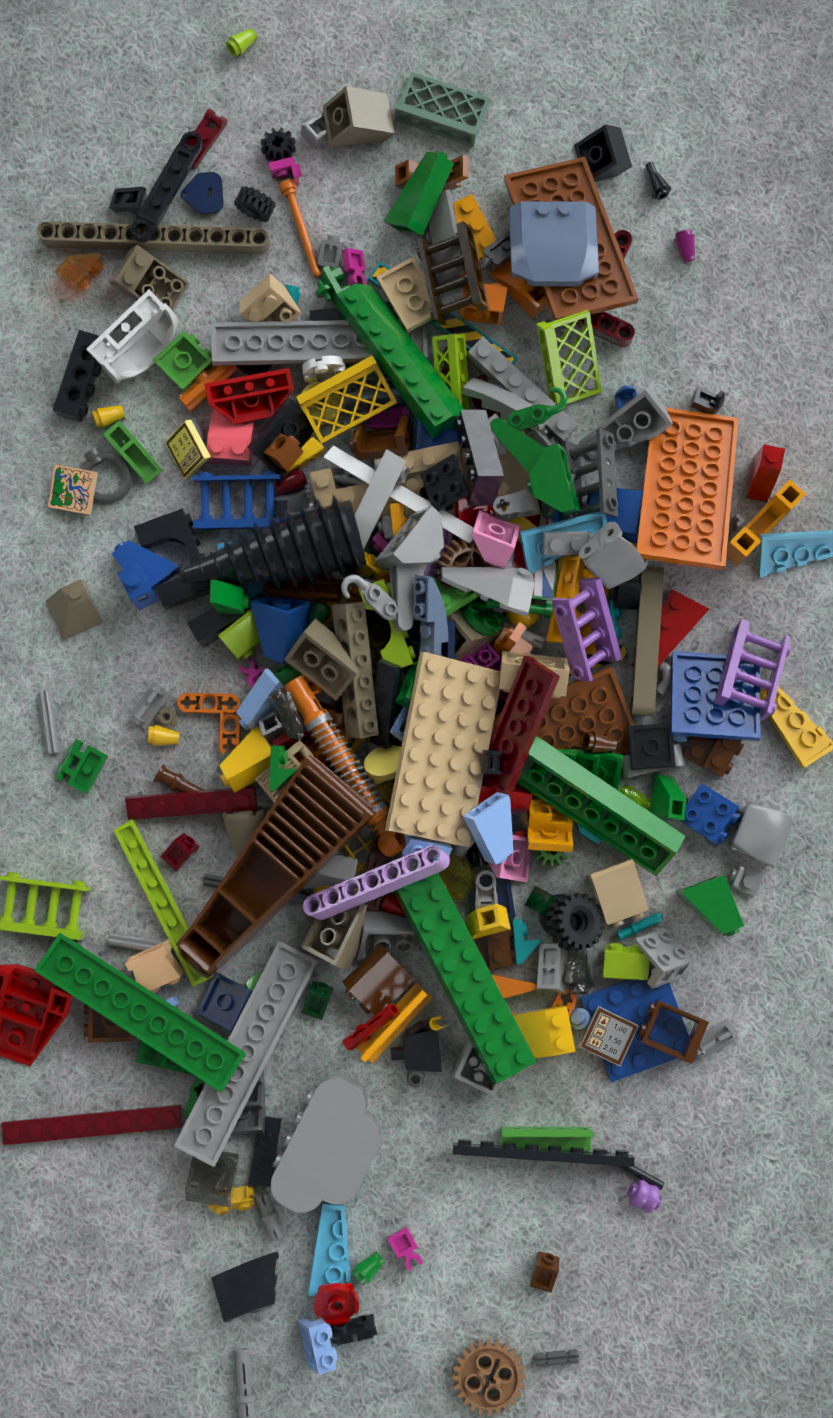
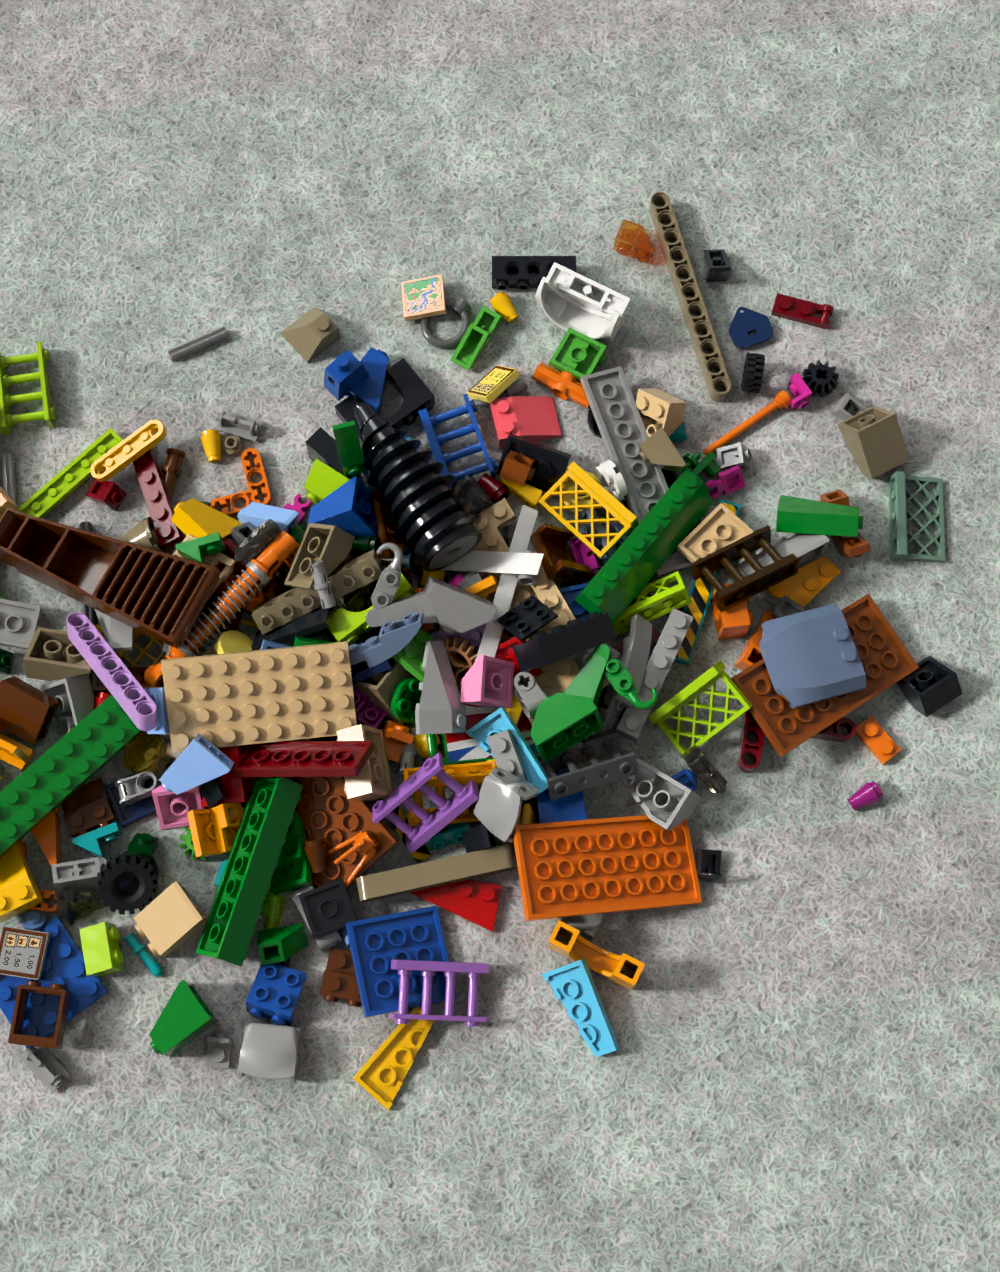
camera: 70 degrees right, 10 degrees down
(87, 769) = (163, 389): green plate -> none
(144, 272) = (647, 305): dark tan slope -> none
(146, 816) = (128, 450): none -> yellow plate
(166, 186) = (740, 290): black plate -> none
(240, 42) = (910, 316): lime cone -> none
(250, 396) = (562, 422): red wedge -> none
(314, 311) = (661, 452): none -> dark tan slope
(358, 660) = (322, 584): none -> light grey pin
(487, 762) = (261, 746): black bush -> none
(487, 921) = (105, 796): yellow slope -> none
(606, 695) = (363, 843): none -> orange plant
(621, 376) = (705, 770): none -> clear smoke rock
(637, 217) = (877, 740): none -> orange plate
(659, 187) = (916, 751): black cone -> none
(666, 671) = (396, 907): light grey arm -> none
(666, 955) = (115, 986): light grey bracket -> none
(765, 472) = (651, 943): red slope -> none

